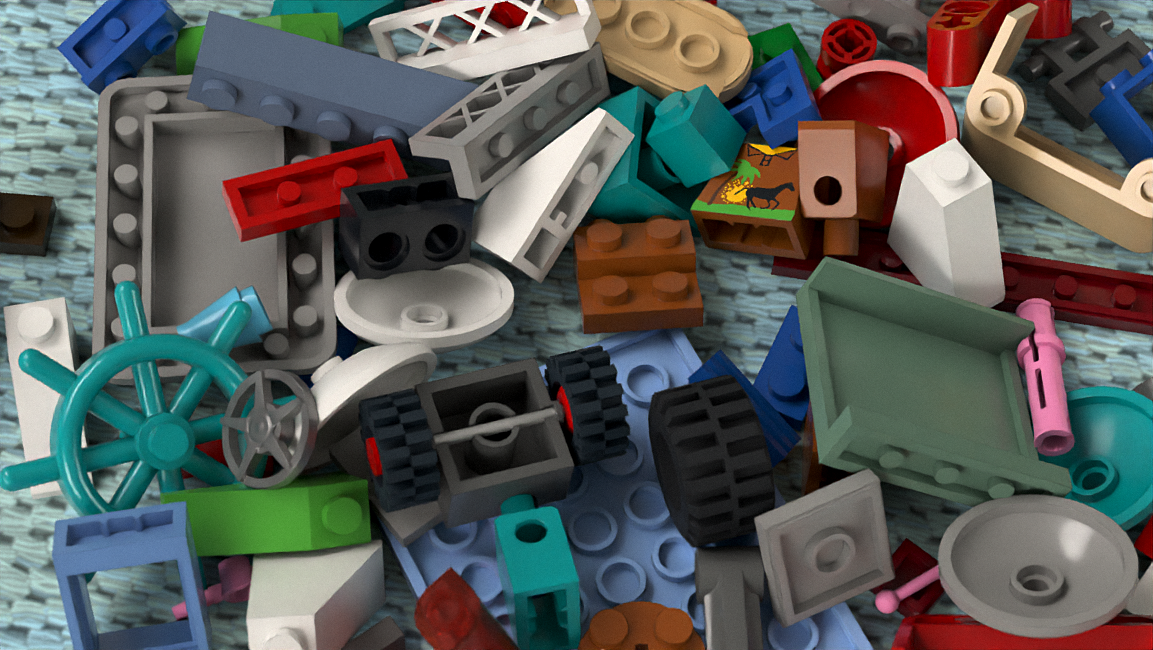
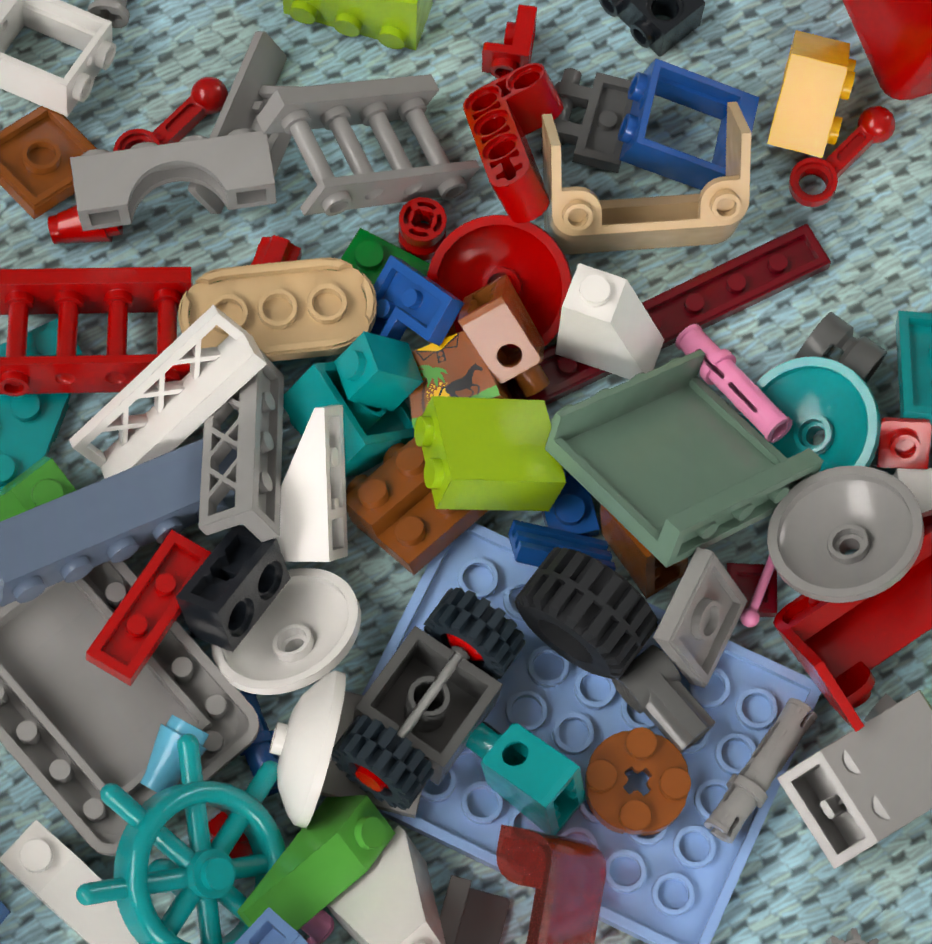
camera: 40 degrees left, 10 degrees up
(269, 429) = (282, 814): flat silver wheel -> none
(735, 268) = (488, 454): none -> lime brick

